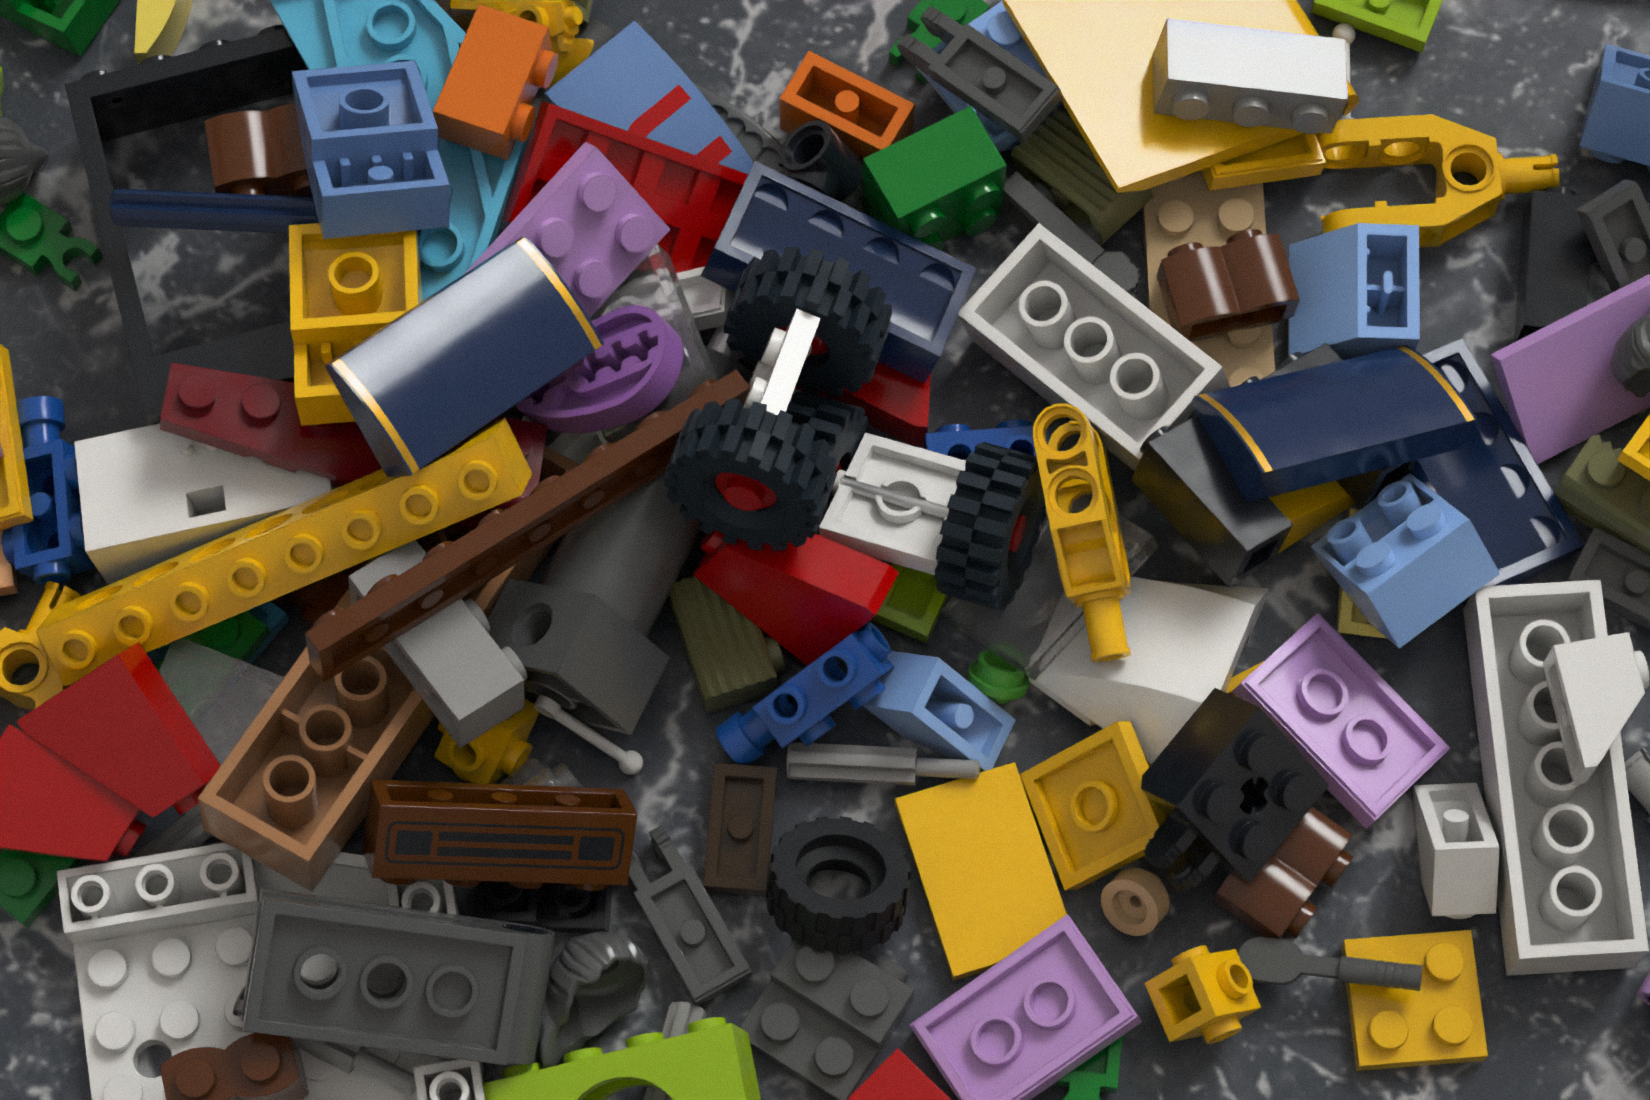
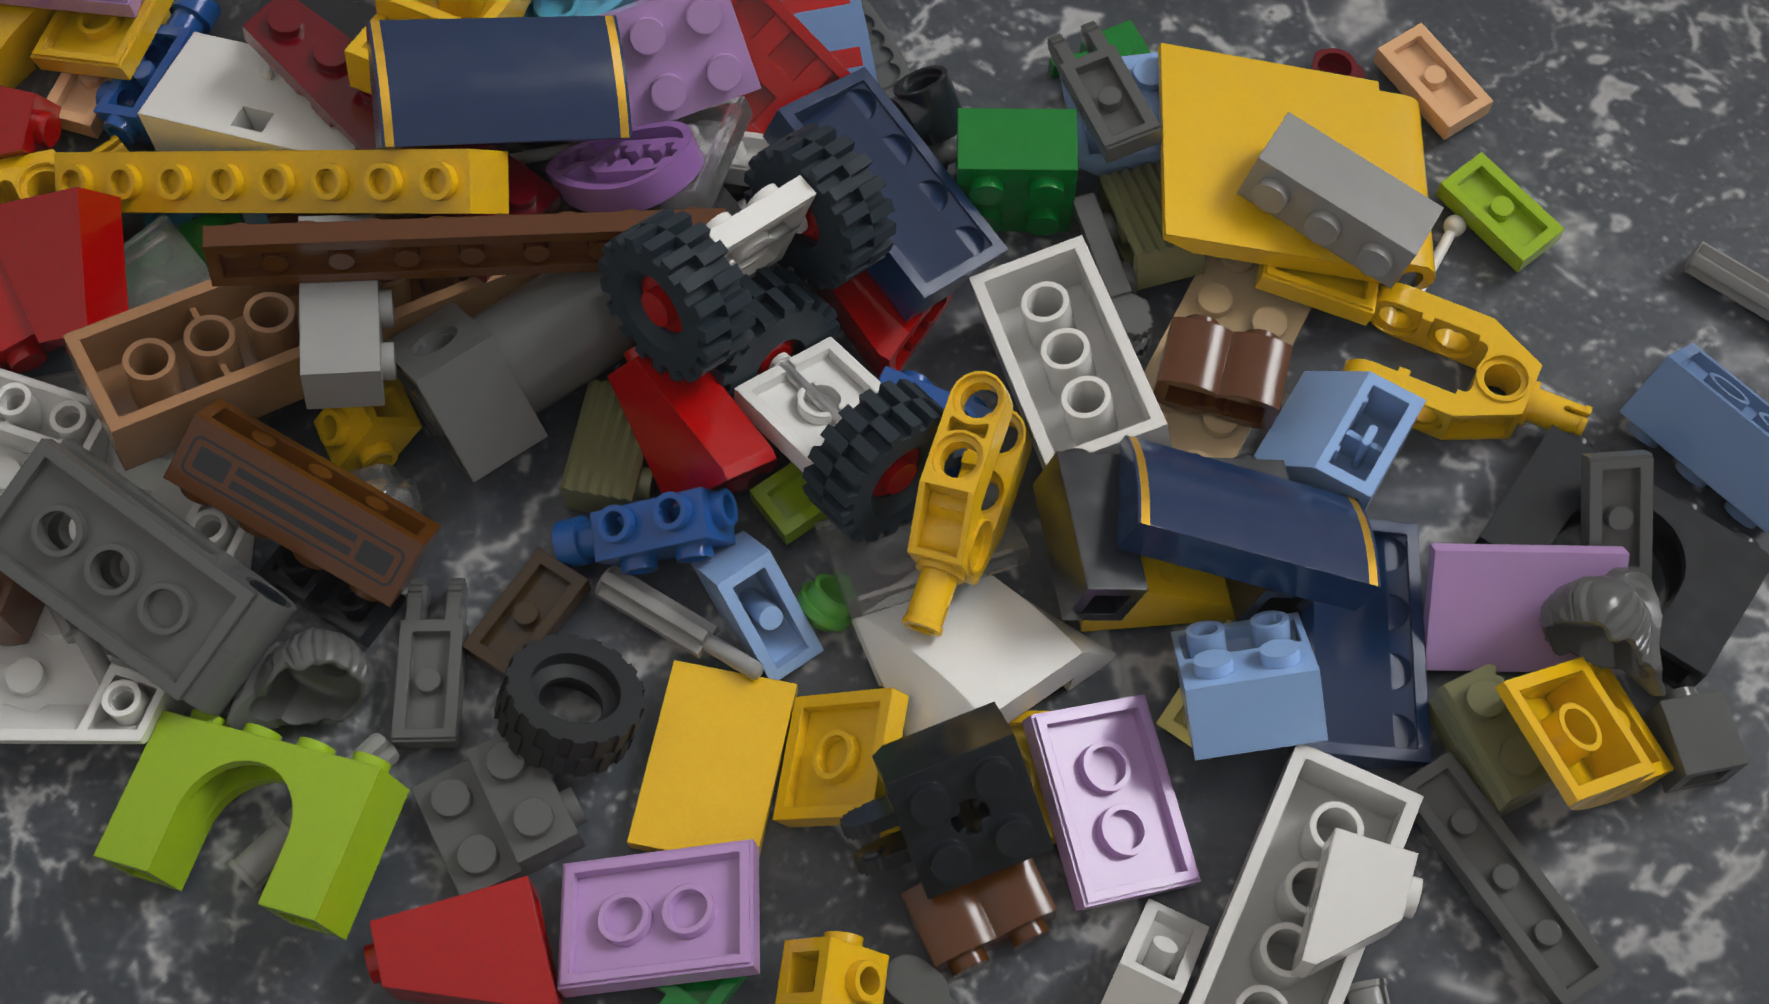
camera: 30 degrees right, 5 degrees down
(629, 761) = (476, 513): white hinge -> none
(853, 107) = (977, 67): orange brick -> none
(1135, 901) = (826, 863): tan tile -> none

